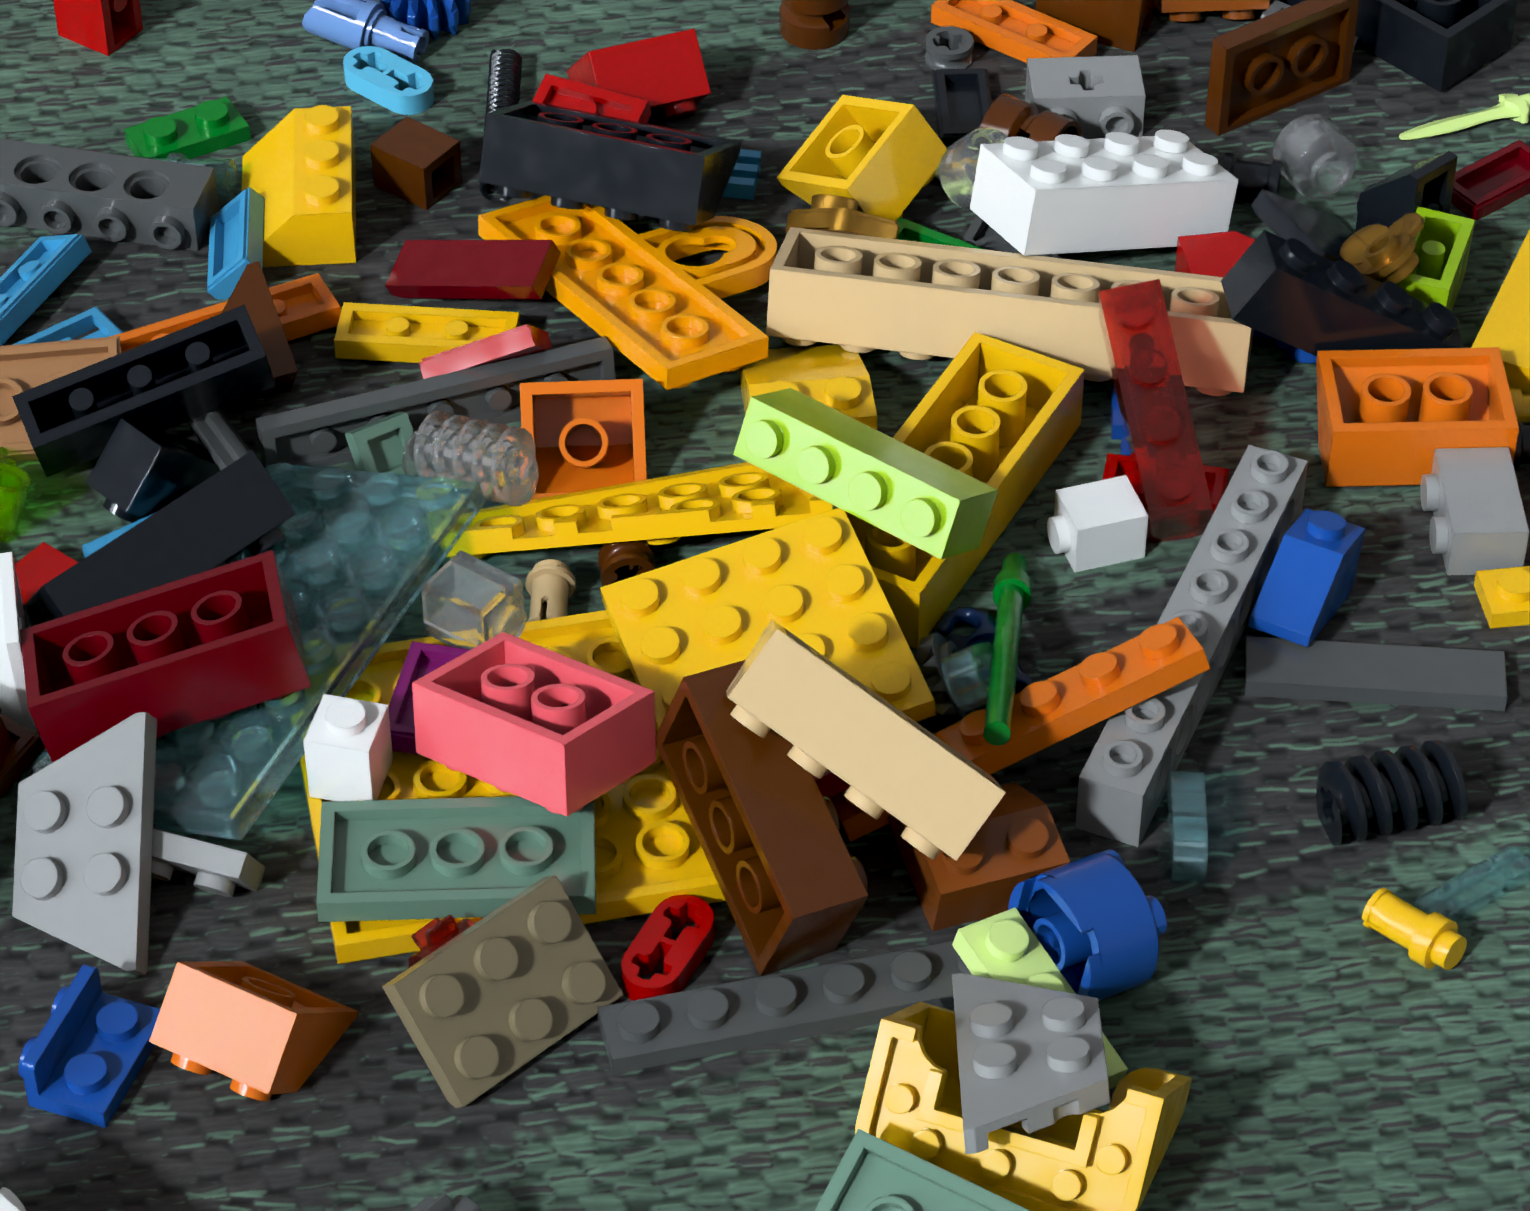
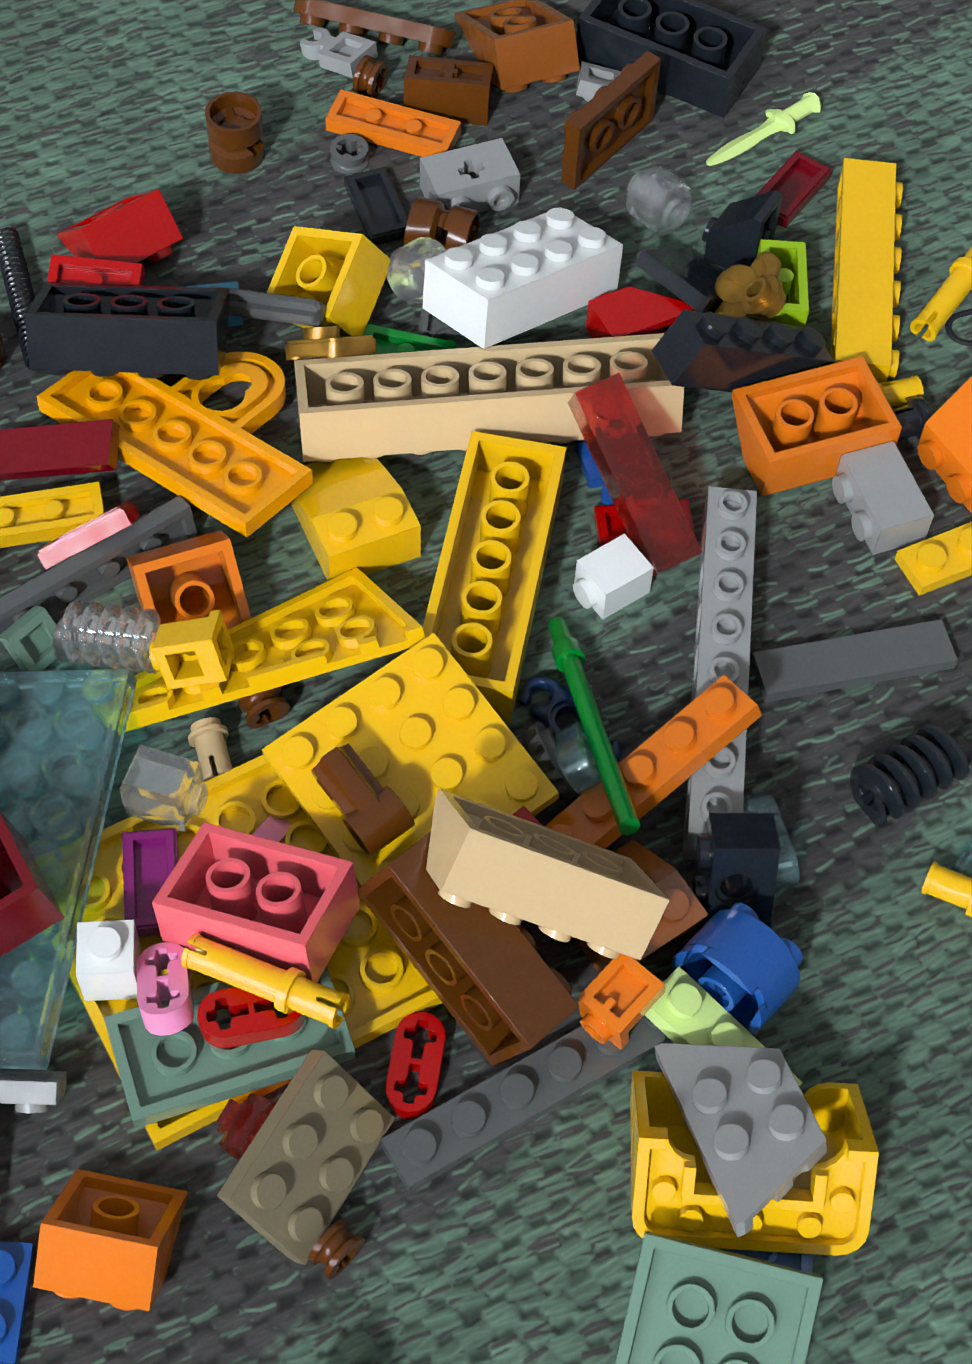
camera: 20 degrees left, 15 degrees up
(399, 784) = (154, 989): none -> bright pink beam
(489, 828) = (251, 1021): none -> red beam
(504, 1095) = (336, 1249): none -> reddish brown bush
(530, 796) = (285, 988): none -> yellow pin
(573, 494) = (193, 651): none -> yellow brick
(686, 632) = (369, 811): none -> reddish brown piece
(788, 172) = (276, 307): none -> dark grey axle
(865, 473) = (442, 598): brick -> none
(923, 913) = (618, 1000): none -> orange bracket
(1134, 792) = (738, 863): none -> black brick
(1253, 176) = (623, 228): black bush -> none
(1308, 577) = (786, 593): blue slope -> none

